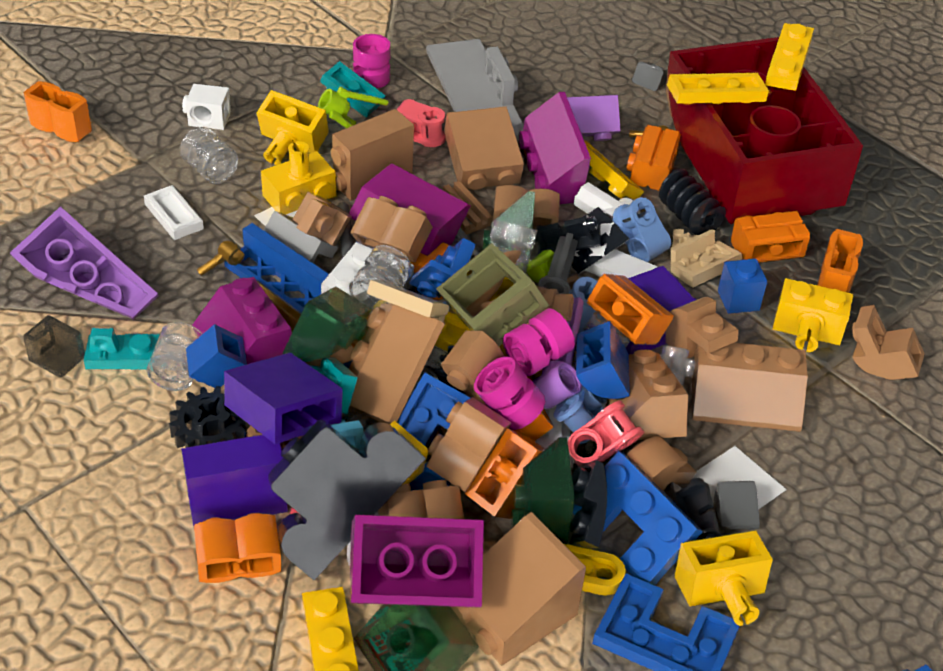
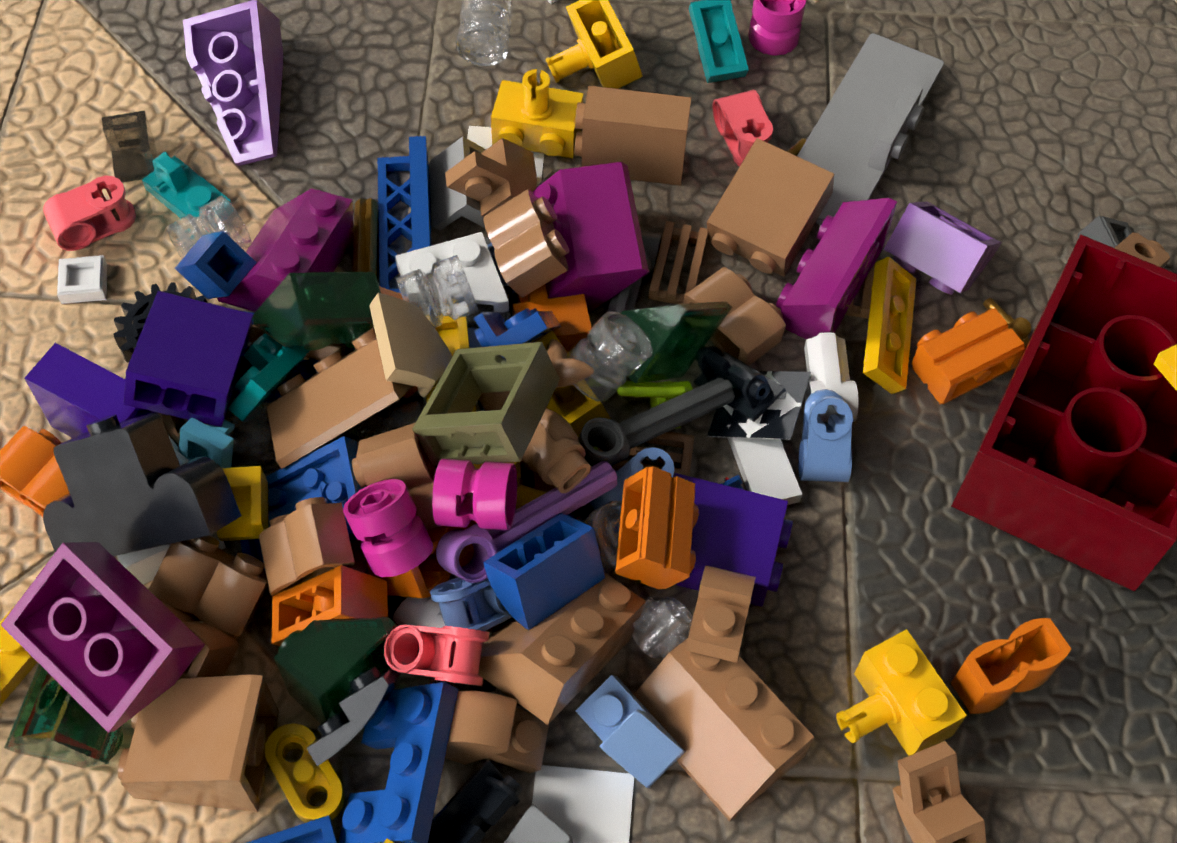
camera: 45 degrees right, 15 degrees up
(72, 396) = (86, 215): none -> coral piece
(111, 438) = (82, 279): none -> white tile
(173, 212) = (394, 71): white tile -> none
(226, 252) = (378, 156): pearl gold hand -> none
(338, 107) = (657, 50): lime plant -> none
(691, 202) = (935, 444): black piece -> none
(699, 256) = (873, 520): tan slope -> none
(717, 88) = (1064, 328): yellow plate -> none
(718, 423) = (629, 732): none -> light blue slope
(742, 286) = (863, 595): blue brick -> none
(770, 236) = (982, 559): orange brick -> none

